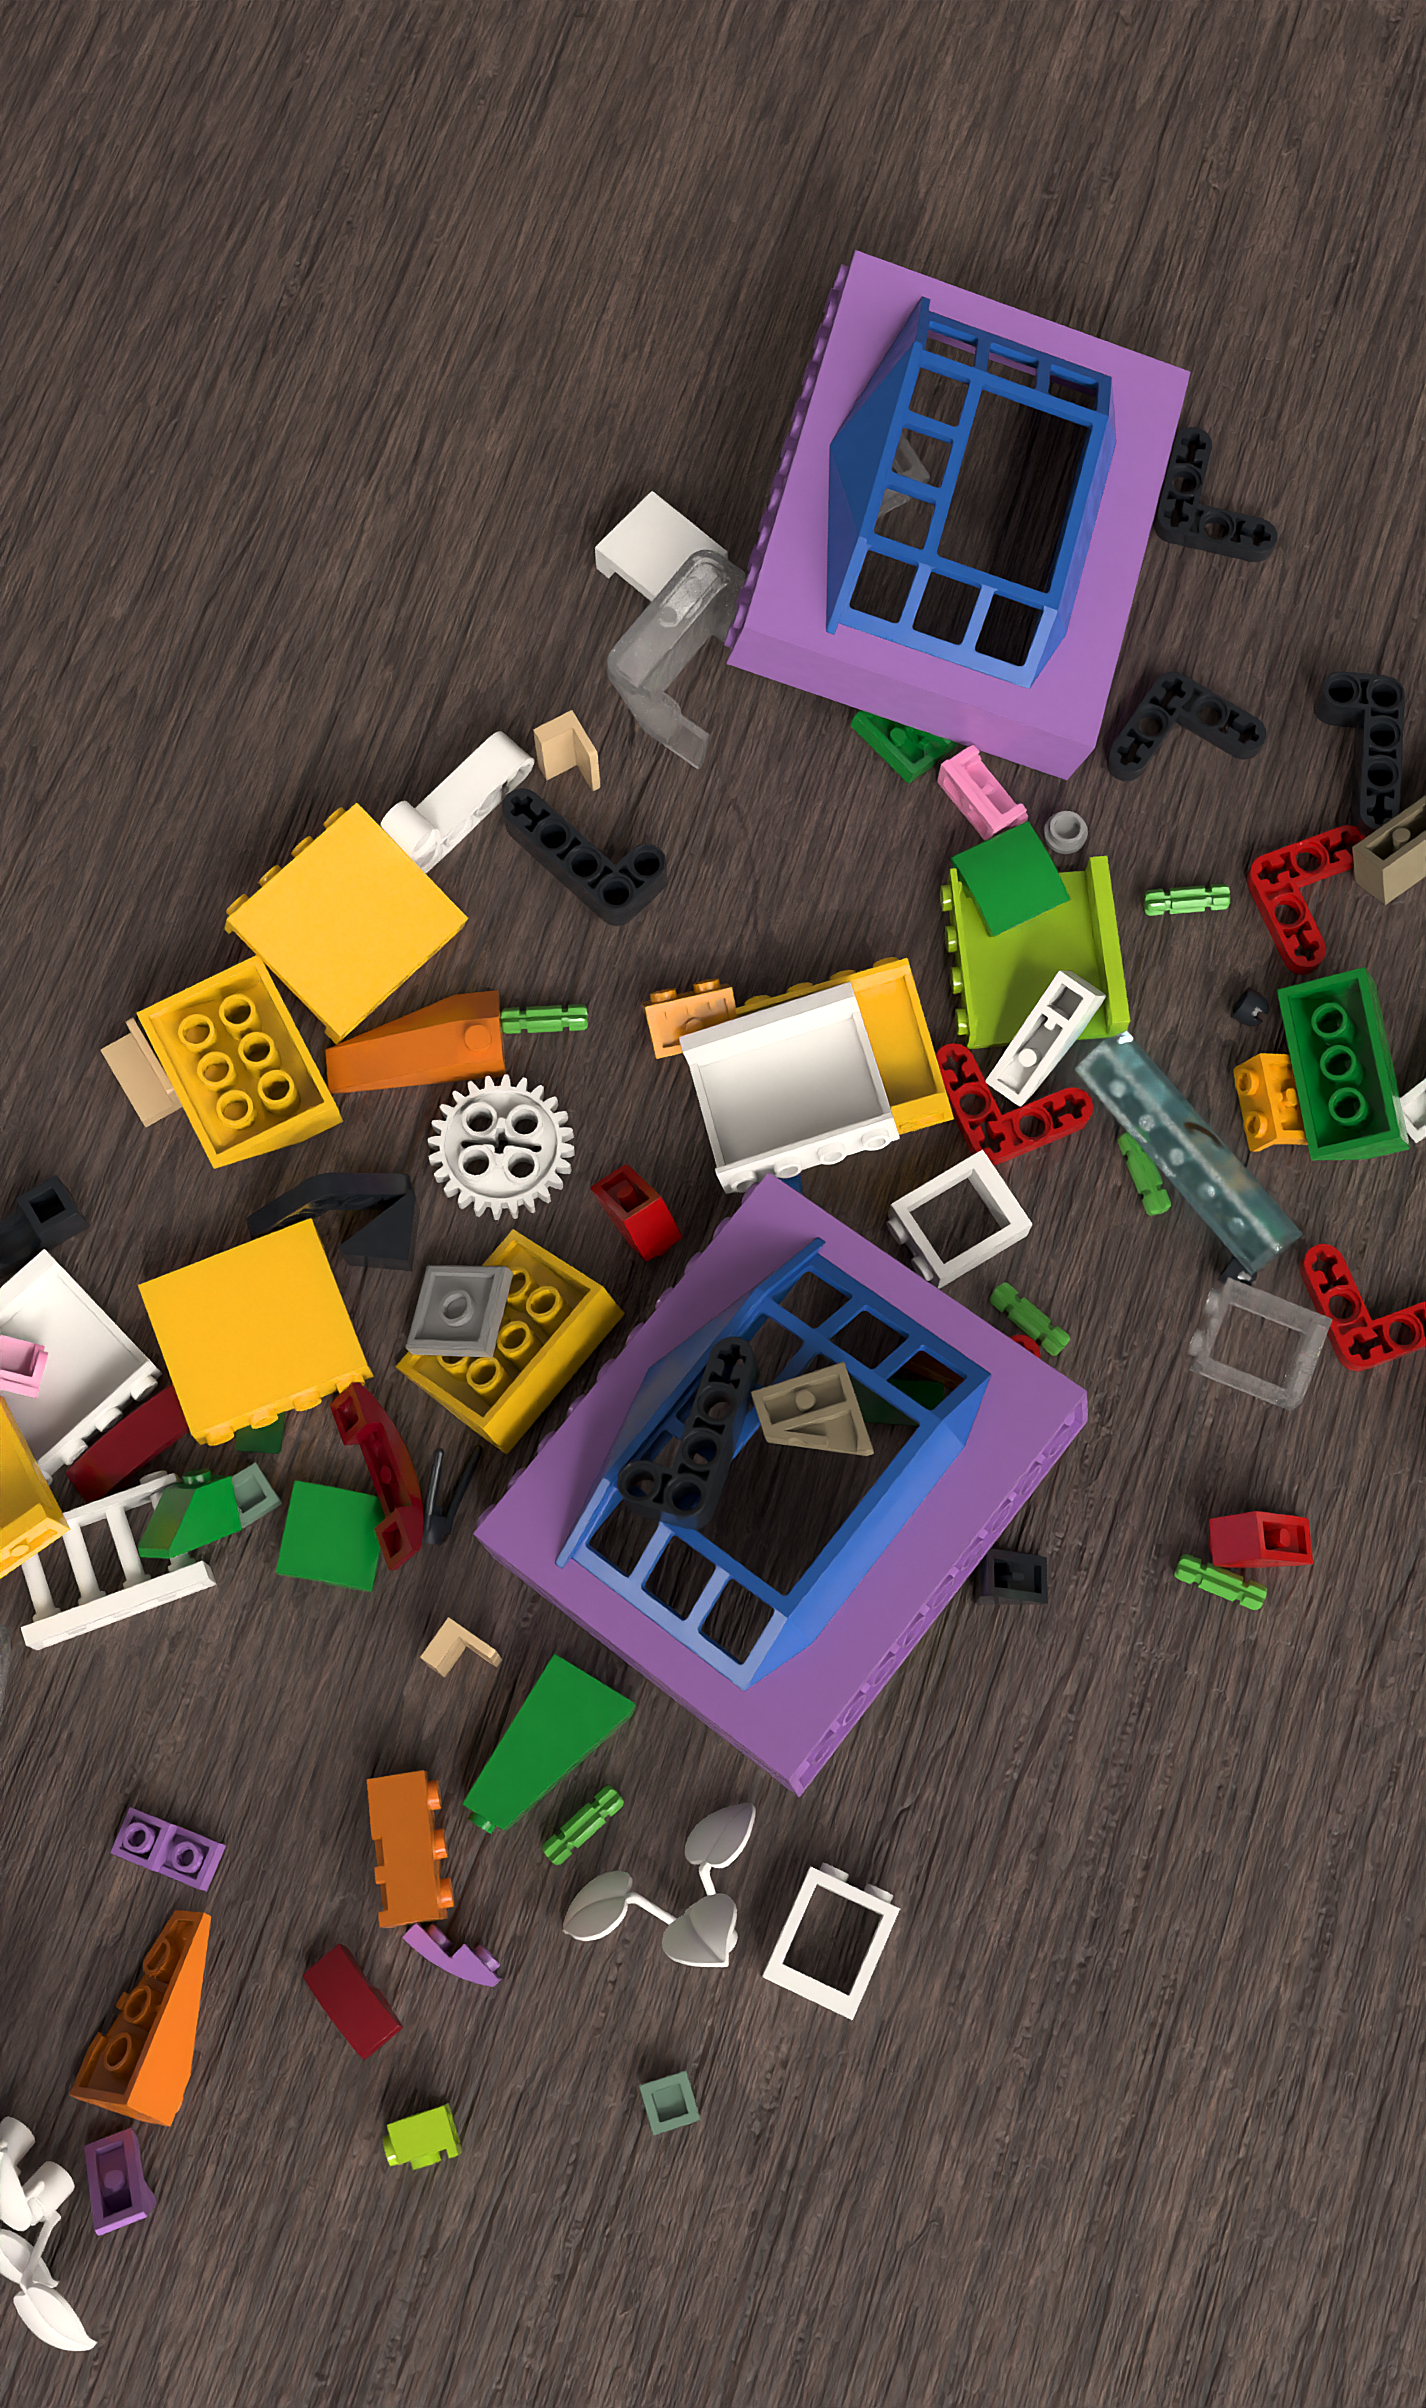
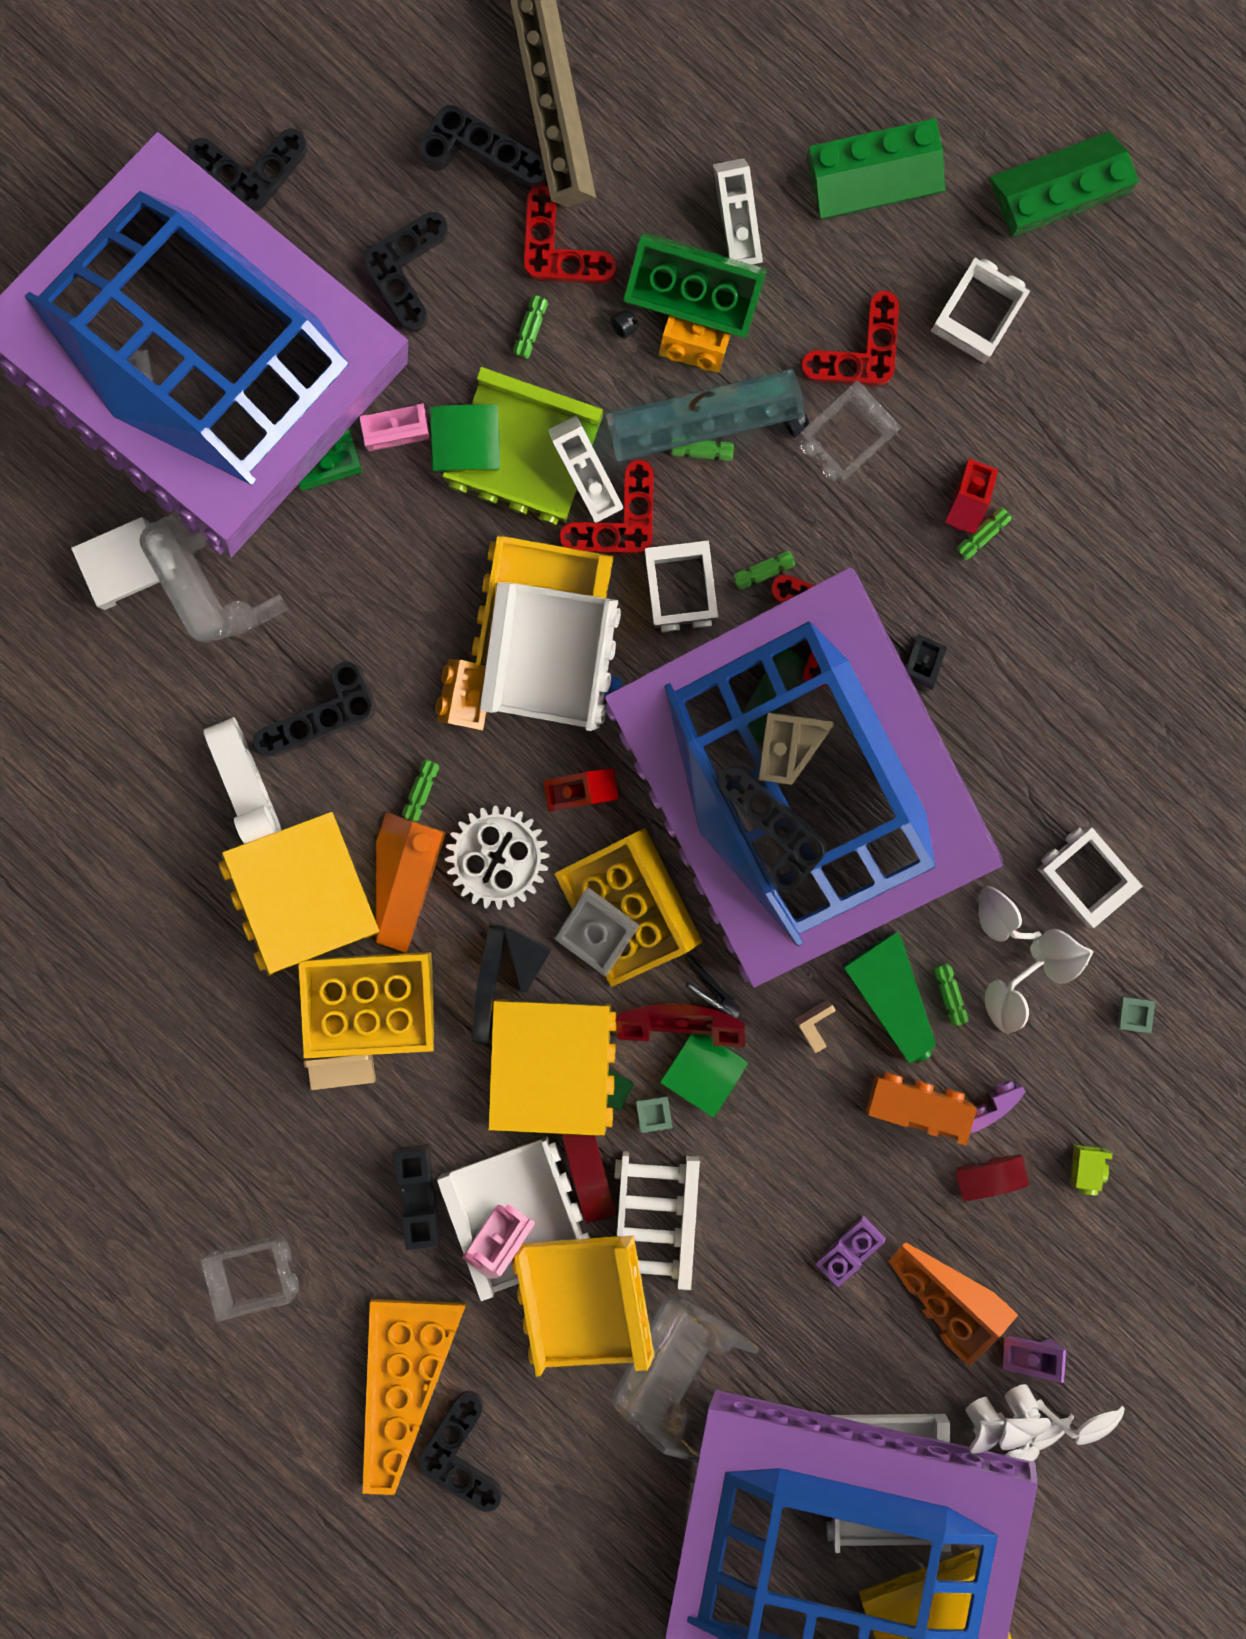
camera: 65 degrees left, 15 degrees up
(191, 1515) = (656, 1157): green slope -> none
(563, 745) = (235, 693): tan panel -> none
(1065, 832) = (446, 383): light grey plate -> none

